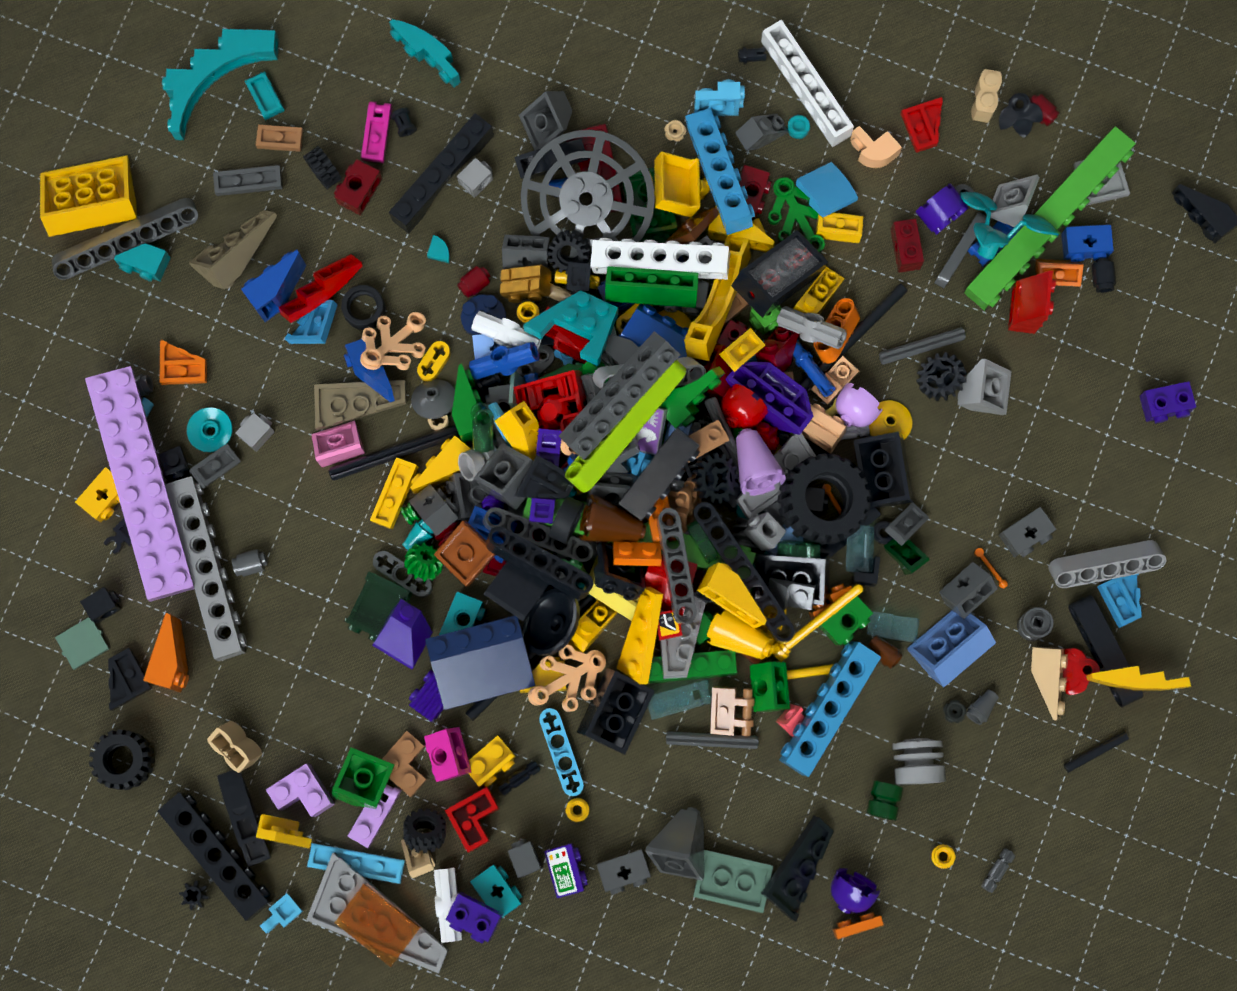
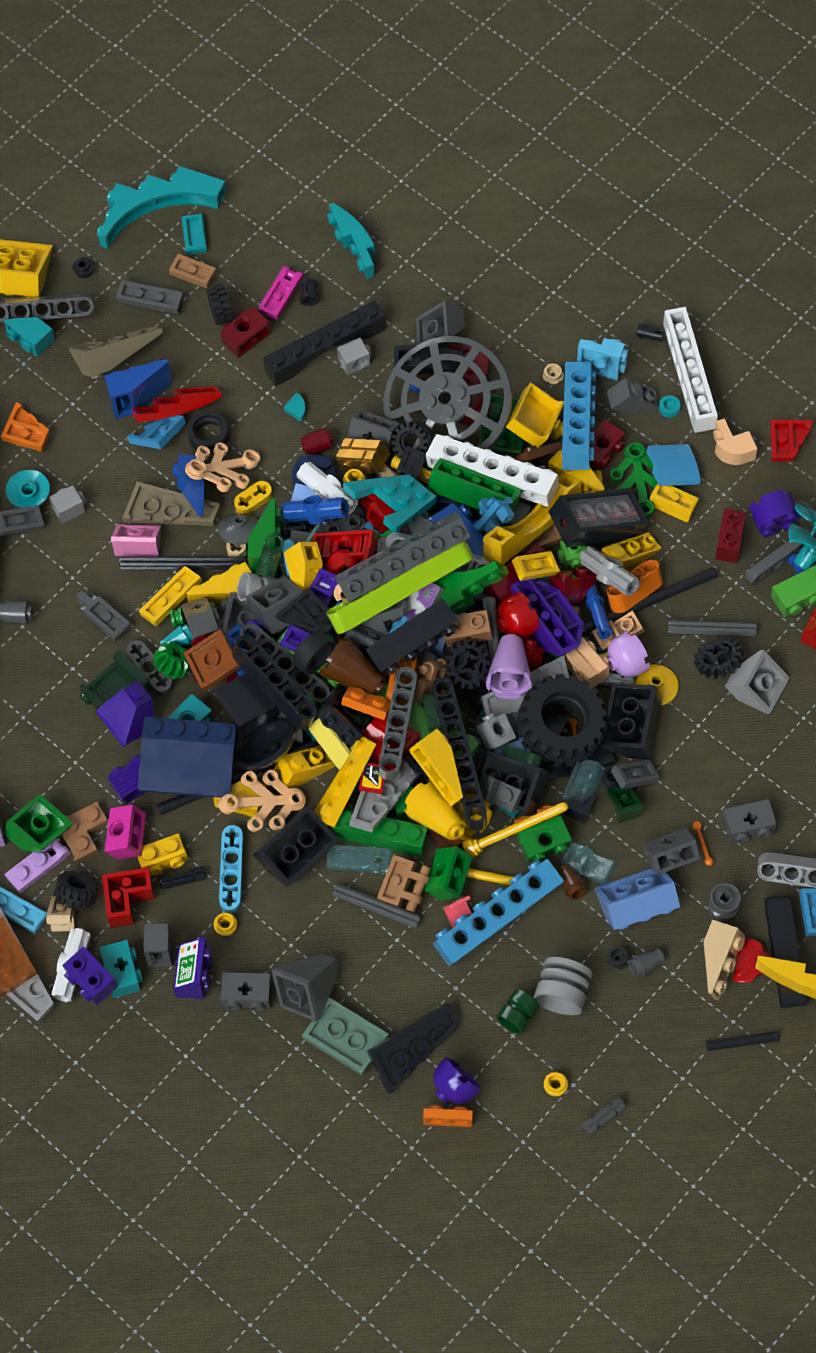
camera: 20 degrees right, 15 degrees down
(172, 174) = (85, 271): none -> black plate
(336, 536) = (103, 615): none -> dark grey hinge
(675, 304) = (492, 511): none -> dark azure hips

